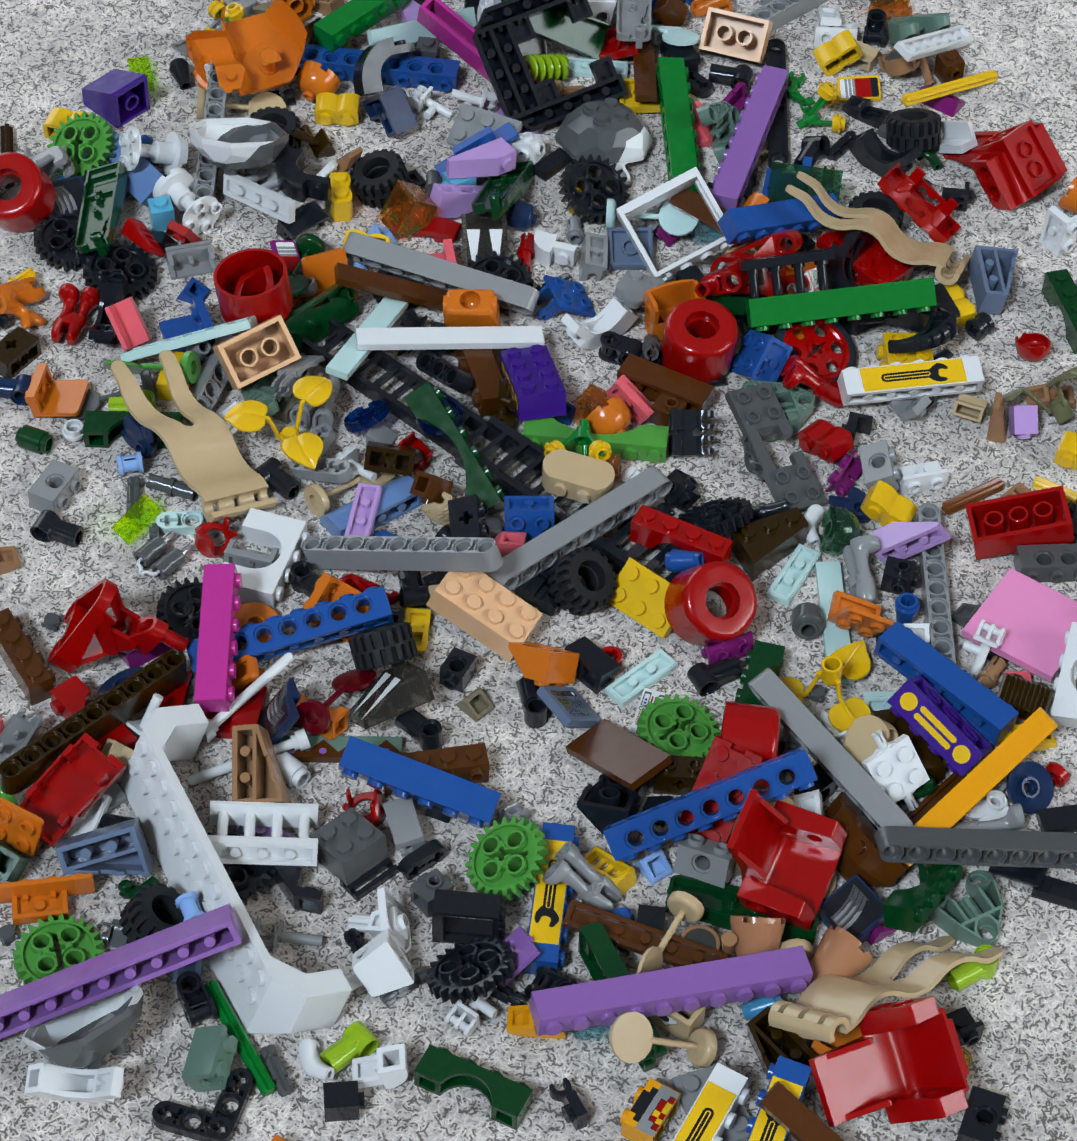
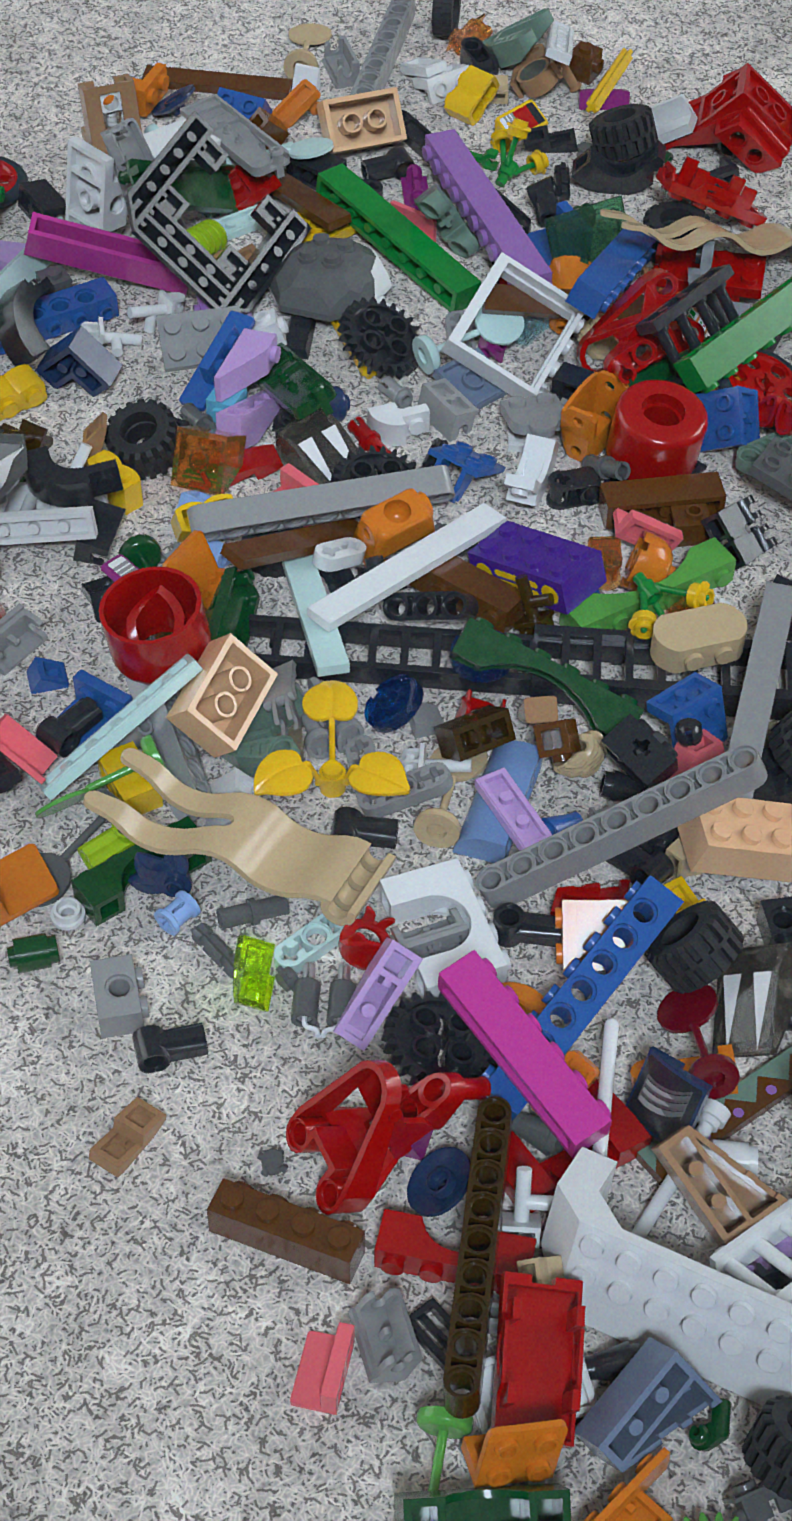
camera: 35 degrees left, 0 degrees up
(164, 327) = (64, 732): none -> black piece
(185, 564) = (377, 993): none -> lavender slope
(420, 310) = (339, 554): none -> white beam
(440, 467) = (538, 710): none -> medium nougat slope
(508, 527) = (689, 724): none -> black hinge

